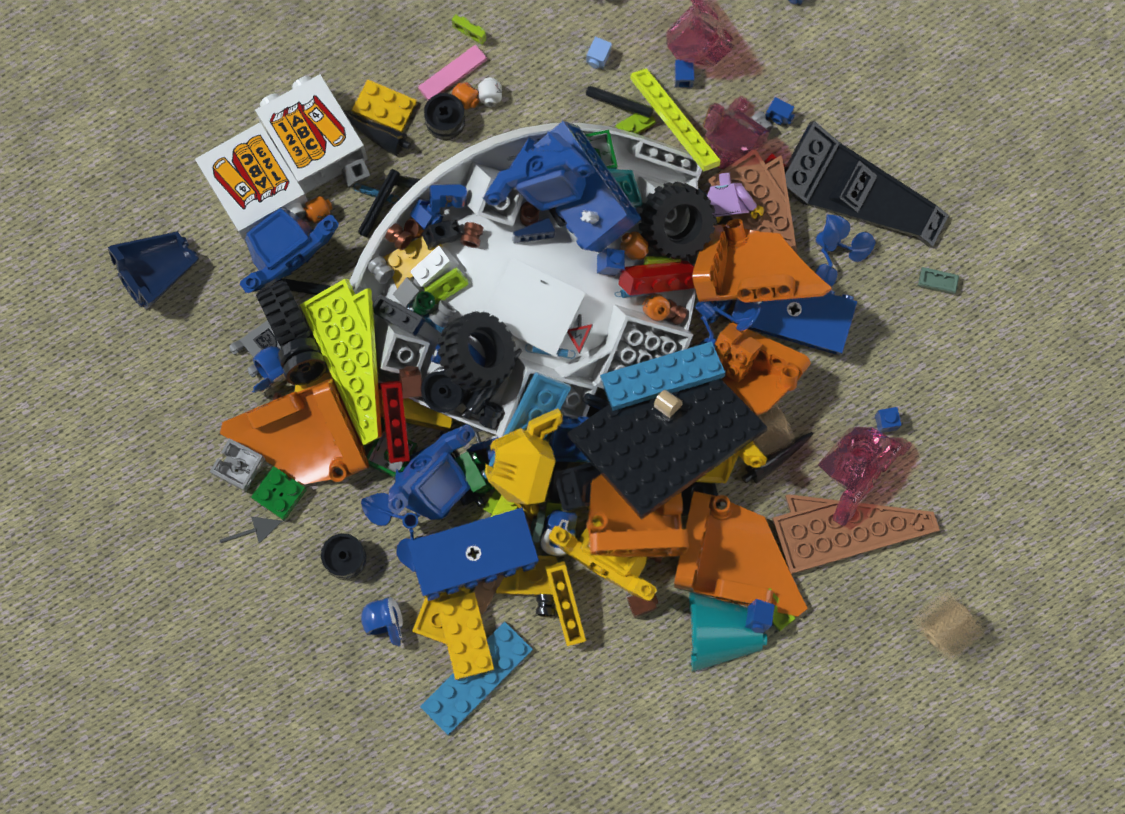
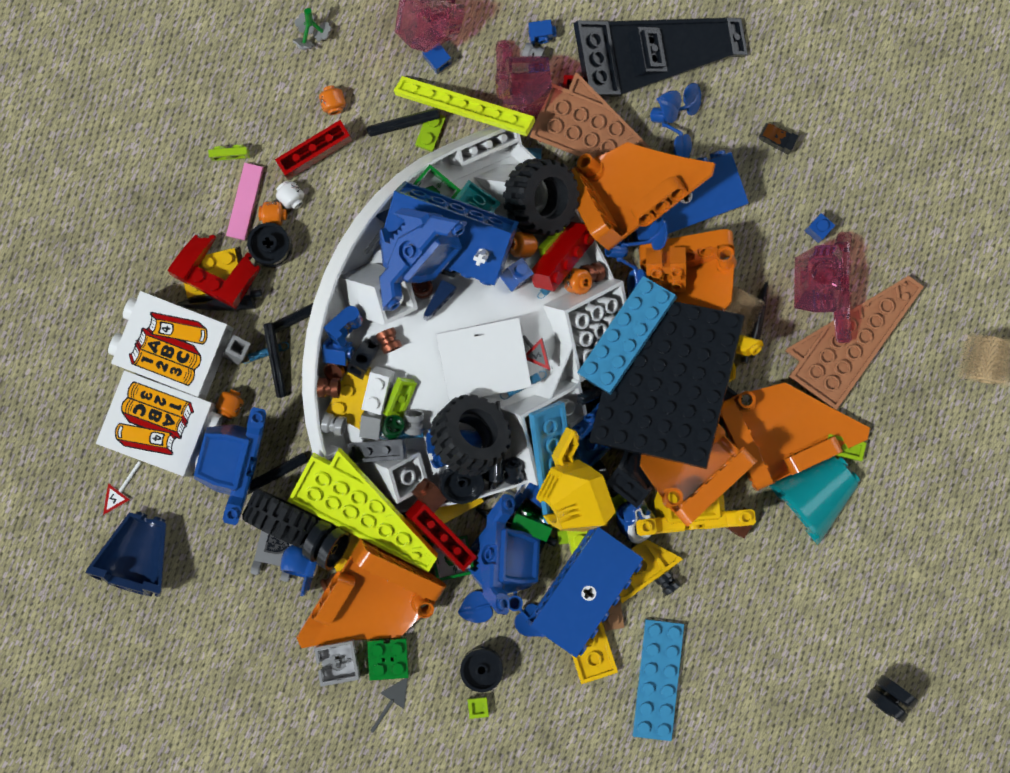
camera: 40 degrees left, 10 degrees up
(176, 214) = (114, 497): none -> piece
(316, 586) = (478, 707): none -> lime plate
(383, 617) = (550, 690): blue piece -> none
(386, 125) = (187, 270): none -> red wedge
(465, 636) = (626, 656): yellow plate -> none
(534, 71) = (313, 150): none -> red brick
(537, 525) = (616, 527): sand green plate -> none
(565, 603) = (685, 571): yellow brick -> none
(578, 47) = (332, 100): none -> orange head
(598, 53) = (353, 93): light blue brick -> none
(667, 403) = (651, 356): tan brick -> none
(732, 199) = (563, 140): lavender torso -> none
(759, 616) = (842, 465): blue brick -> none
(908, 327) = (778, 138): none -> black leg
(938, 280) = (773, 80): sand green plate -> none

